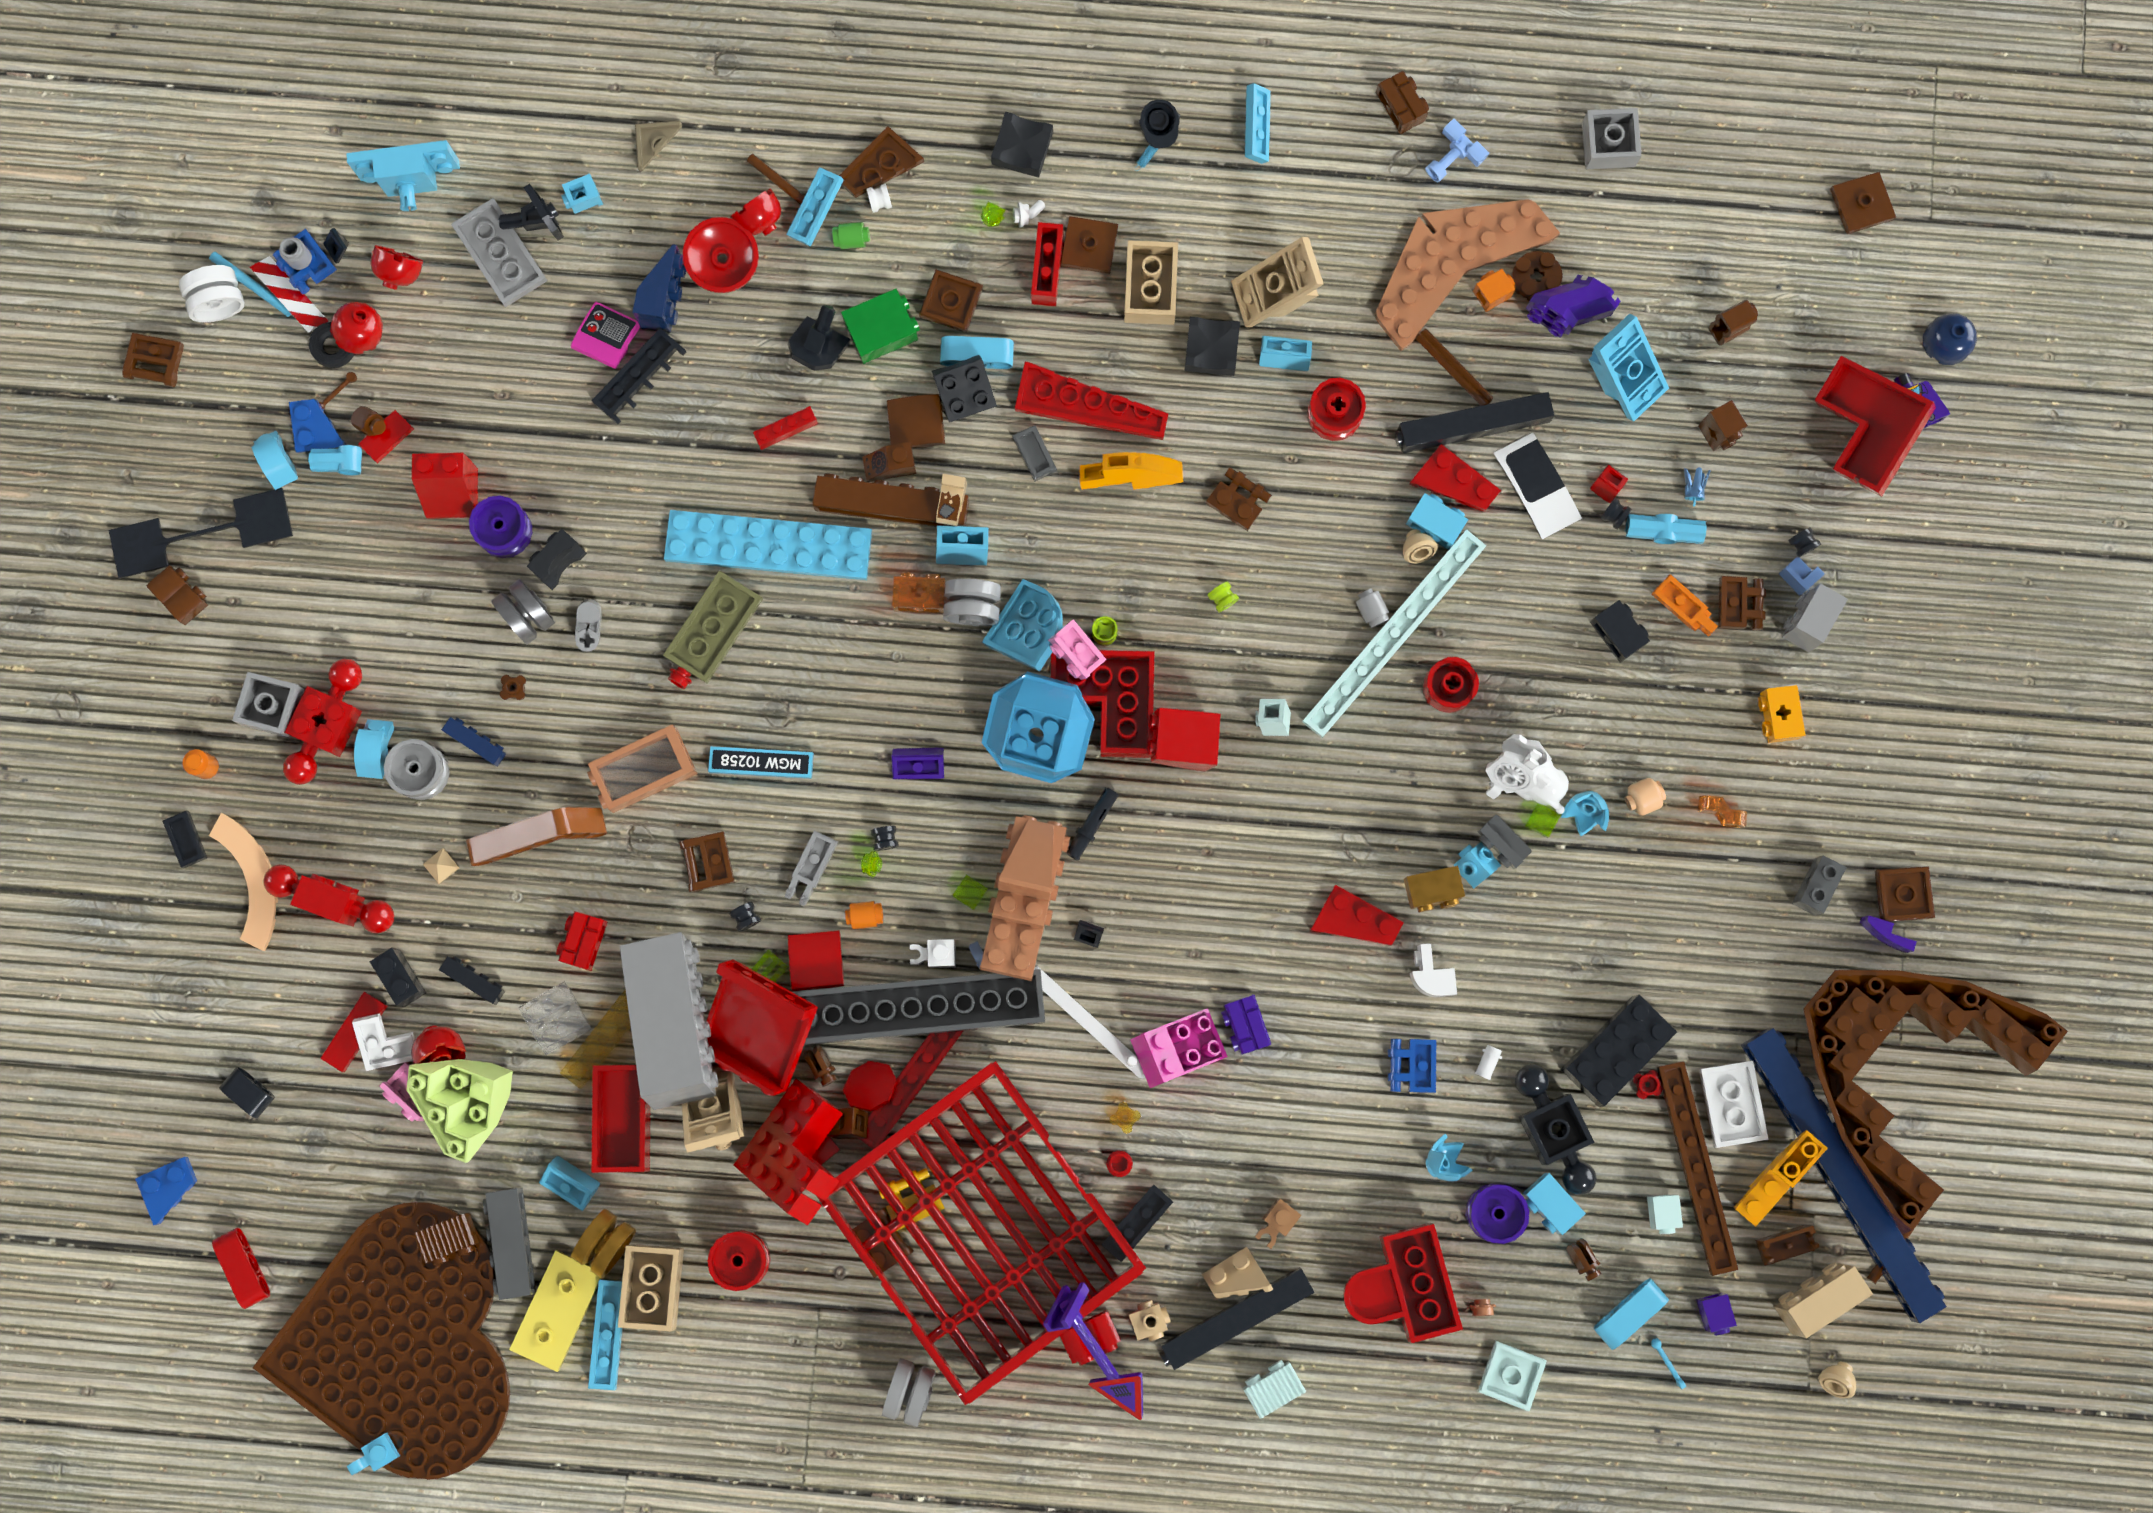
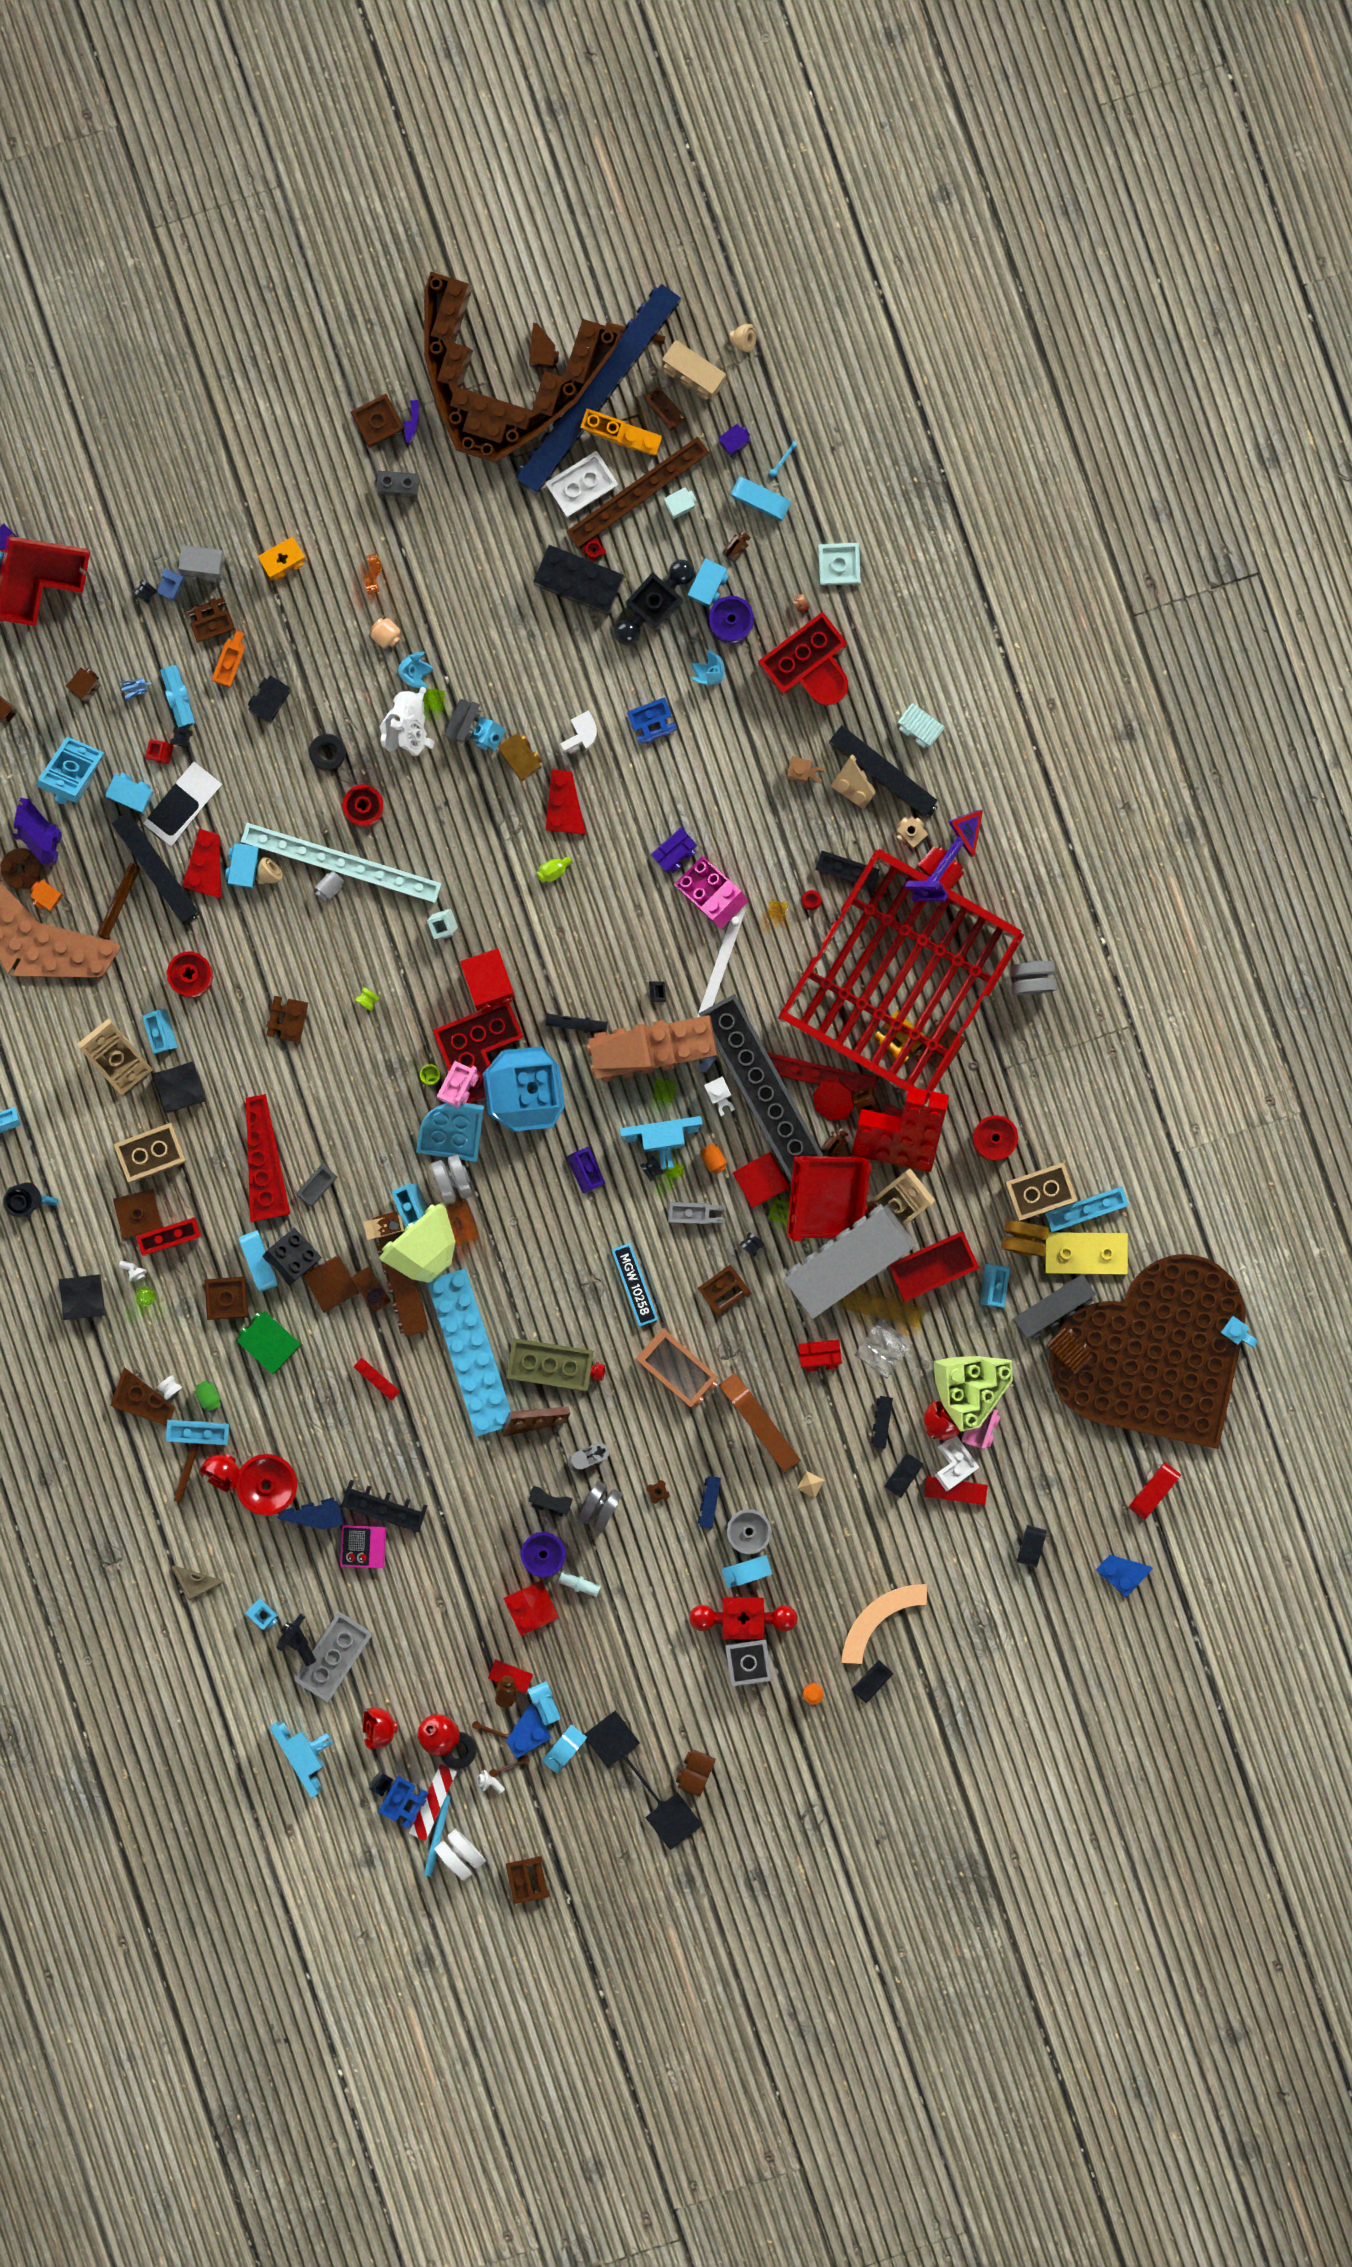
camera: 115 degrees left, 5 degrees up
(281, 360) = (484, 1780): none -> white plate
(290, 374) = (493, 1773): none -> reddish brown hinge
(295, 253) = (396, 1806): light grey brick -> none
(324, 899) = (870, 1548): red brick -> none
(451, 554) = (579, 1584): none -> light aqua pin
(656, 583) = (534, 1419): none -> reddish brown wing
(816, 343) = (302, 1383): black piece -> none
(906, 535) = (424, 1247): none -> yellowish green brick
(914, 864) = (662, 1136): none -> medium azure brick
(1124, 467) = (299, 1106): light orange slope -> none
(1284, 874) = (553, 869): none -> lime plant
(1488, 1062) = (626, 668): white pin -> none
(1531, 656) = (336, 761): none -> black tyre
(1574, 428) = (129, 793): none -> medium azure brick
(1916, 1126) = (543, 350): none -> reddish brown slope

